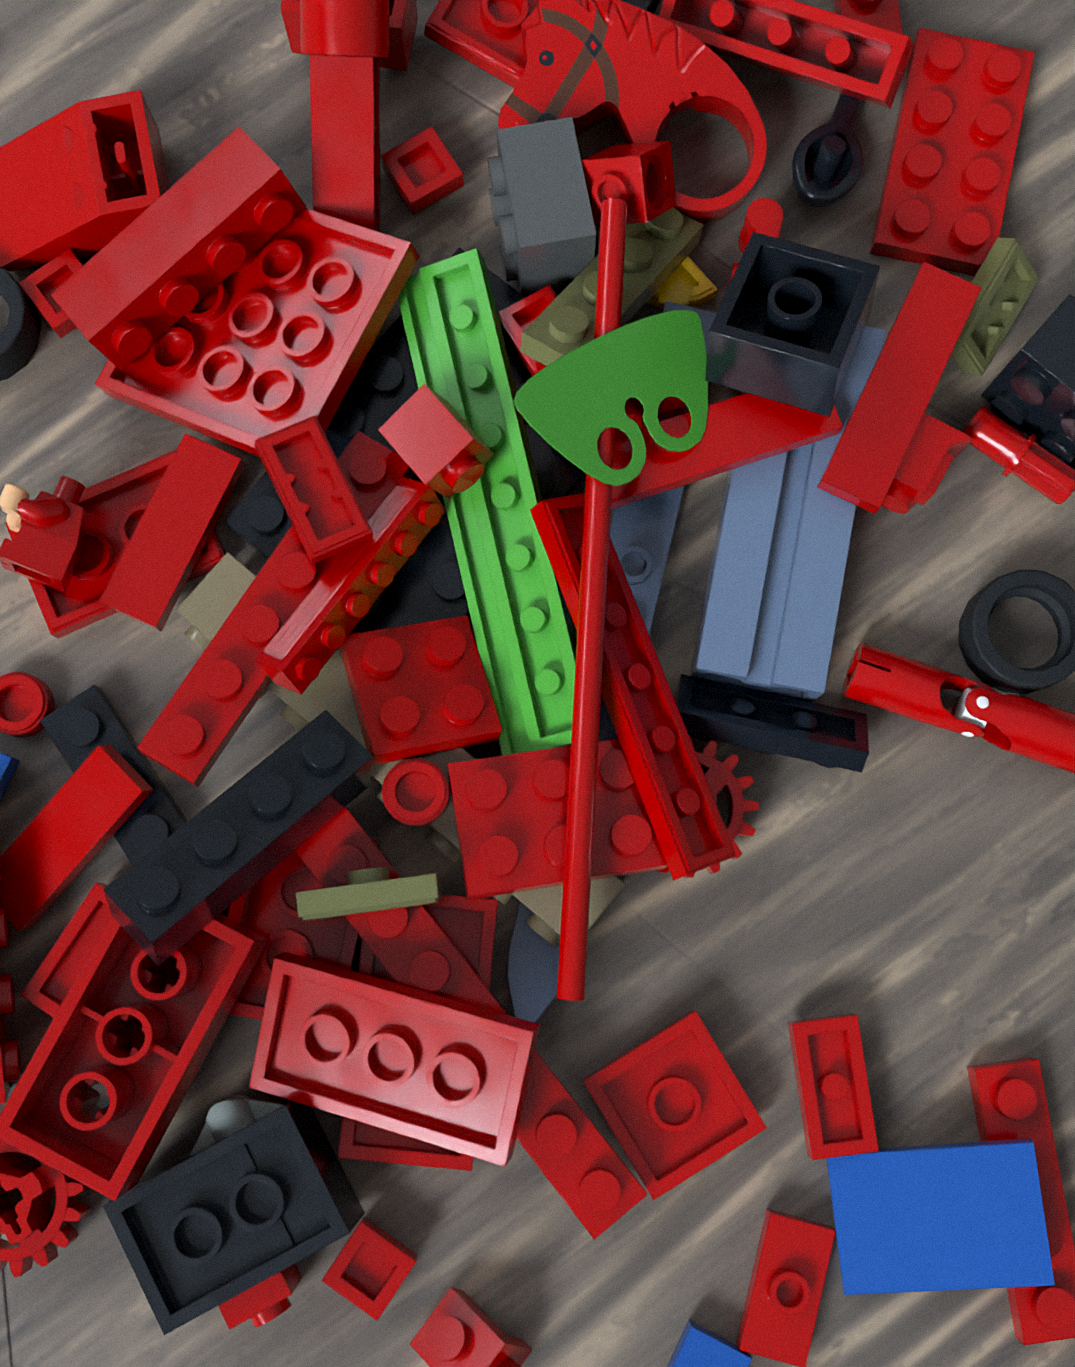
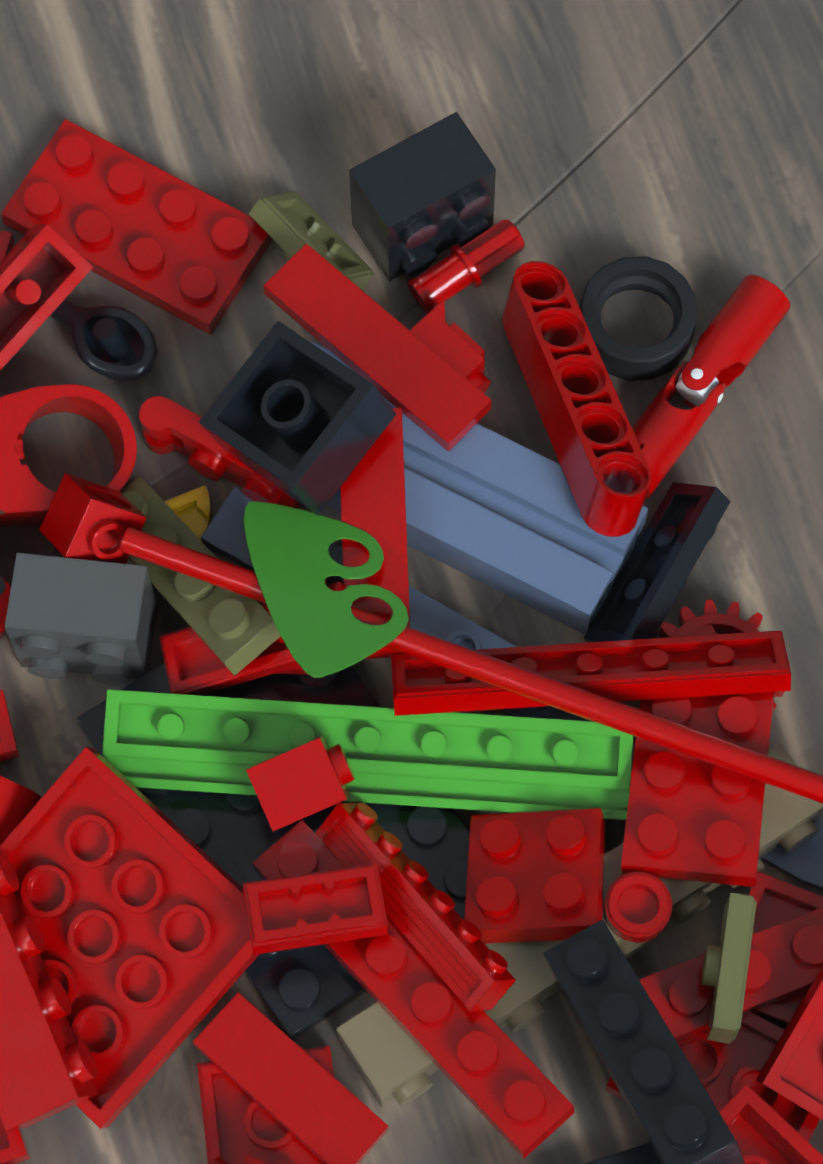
camera: 70 degrees left, 10 degrees down
(941, 570) = (576, 399): none -> red beam

